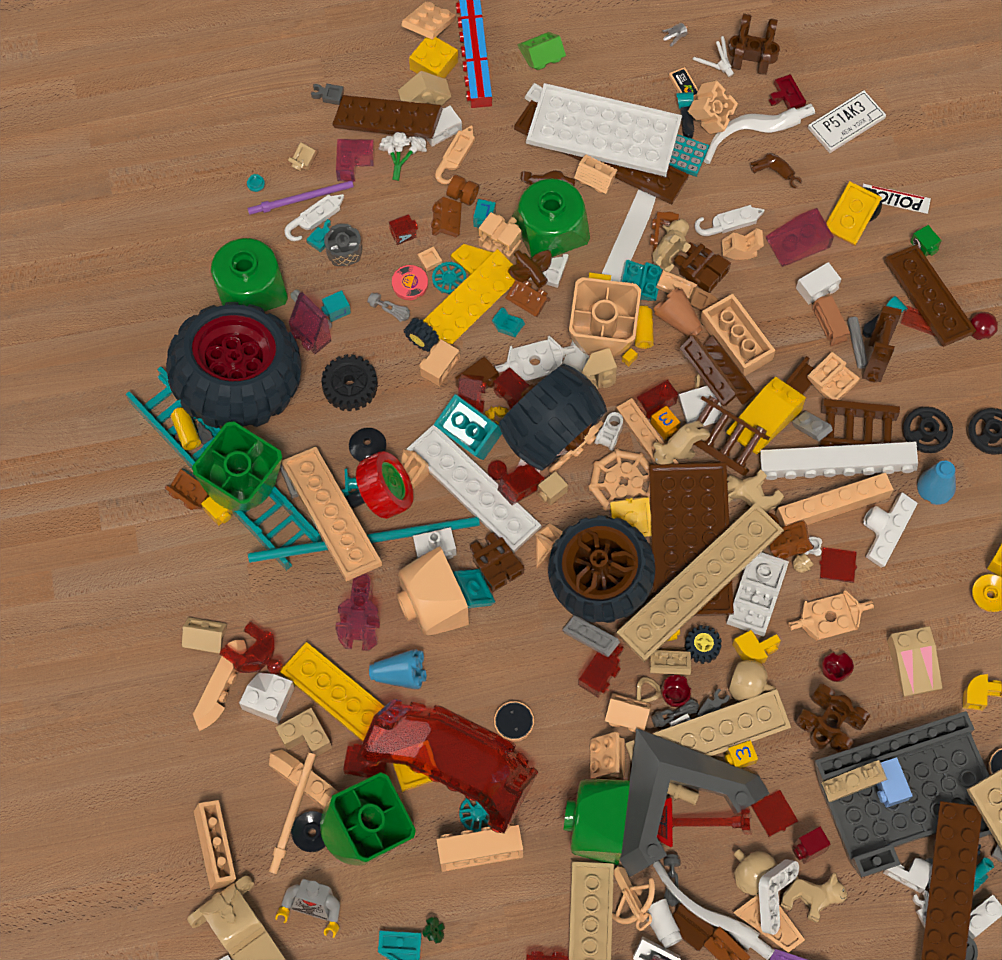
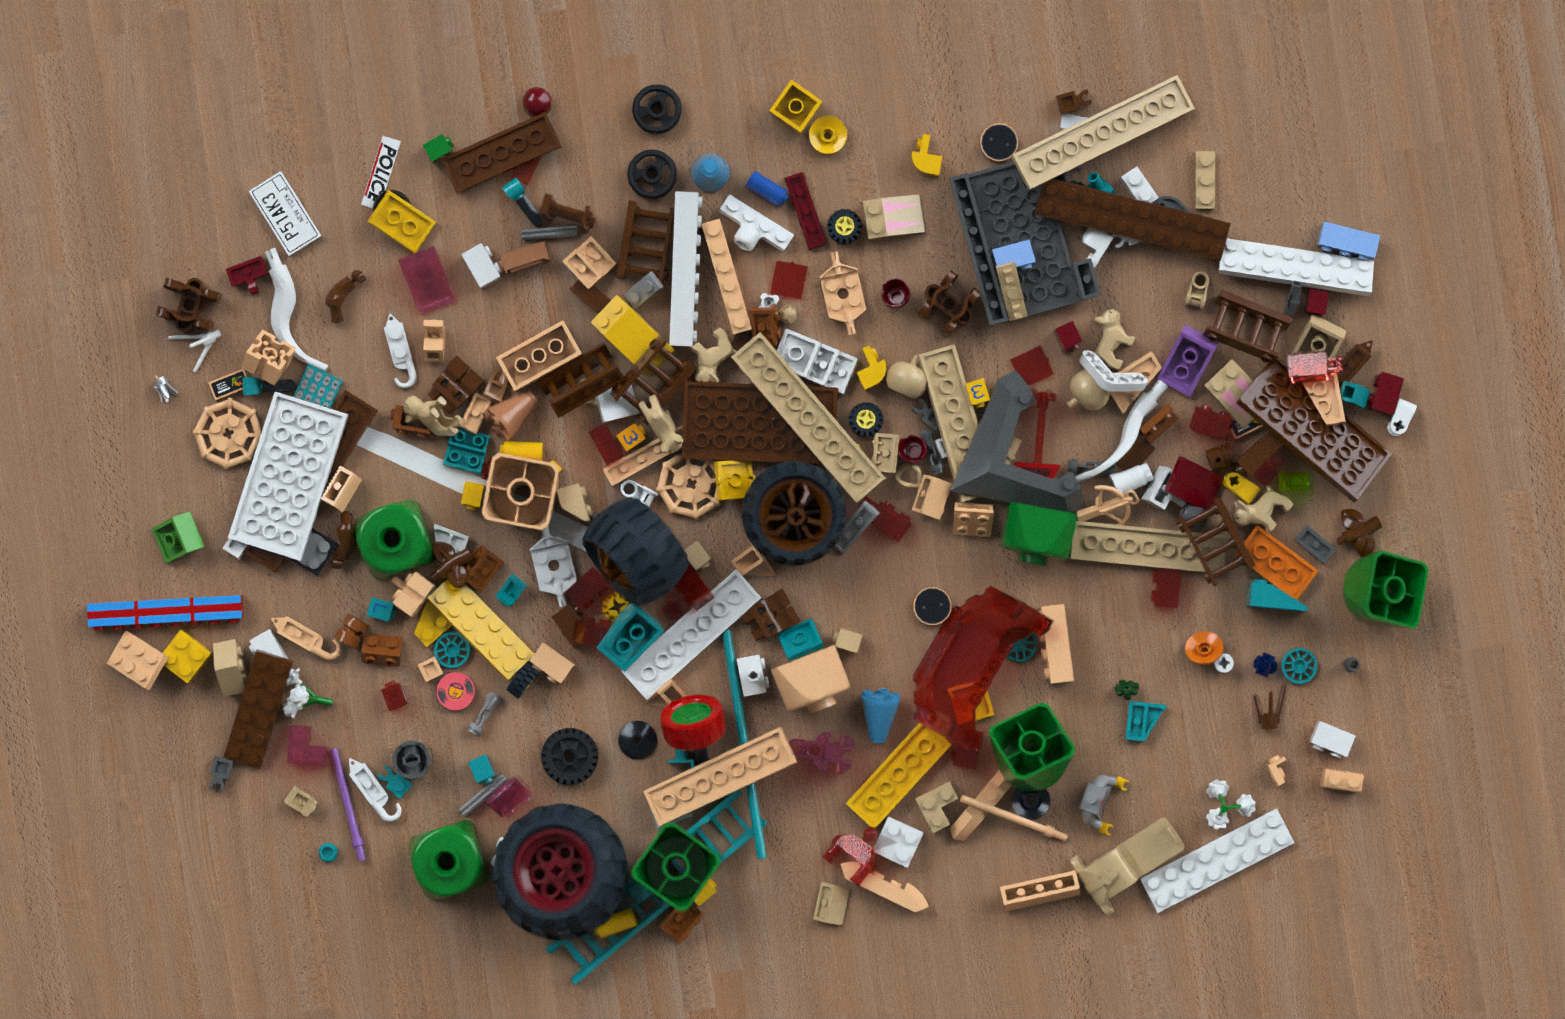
camera: 85 degrees left, 20 degrees up
(474, 636) = (847, 640): none -> tan brick
(536, 159) = (316, 553): none -> light grey piece
(642, 77) = (219, 427): none -> light nougat plate
(904, 609) = (840, 222): none -> black wheel
(910, 577) = (805, 211): none -> dark red tile
(928, 537) = (767, 189): none -> blue brick

